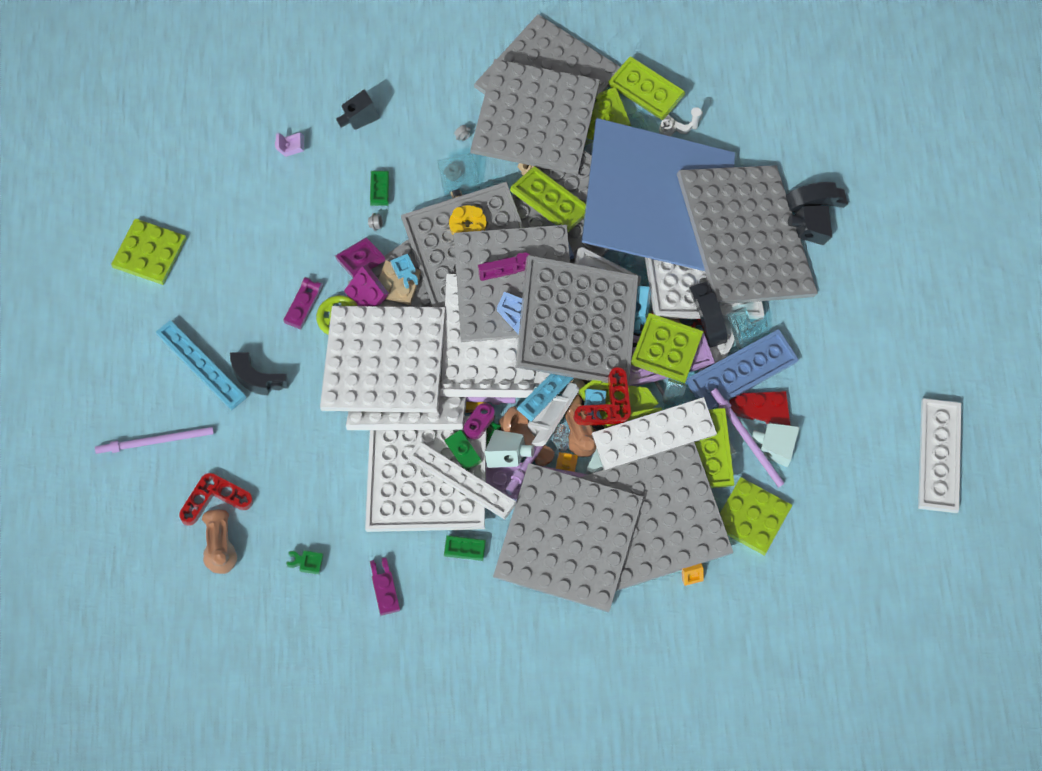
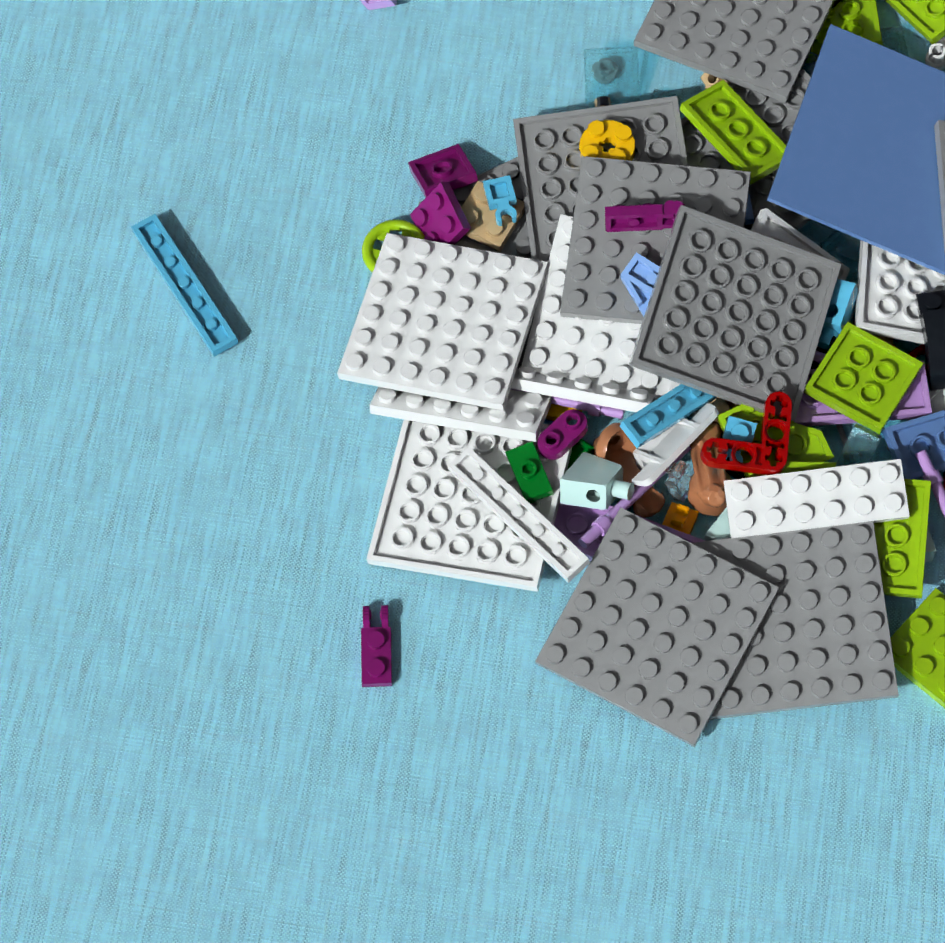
camera: 20 degrees right, 0 degrees up
(116, 446) = (42, 378): lavender bar -> none
(148, 251) = (146, 112): lime plate -> none
(213, 490) = (164, 465): red beam -> none
(219, 553) = (153, 553): nougat hair -> none
(252, 379) = (253, 318): black arch -> none
(303, 303) = (348, 222): magenta plate -> none
(309, 561) = (275, 592): green plate -> none
(375, 221) = (476, 123): light grey plate -> none
(379, 188) = (493, 76): green plate -> none
(462, 133) = (631, 16): light grey plate -> none
(464, 548) = (504, 613): green plate -> none
(692, 574) = (831, 716): light orange tile -> none

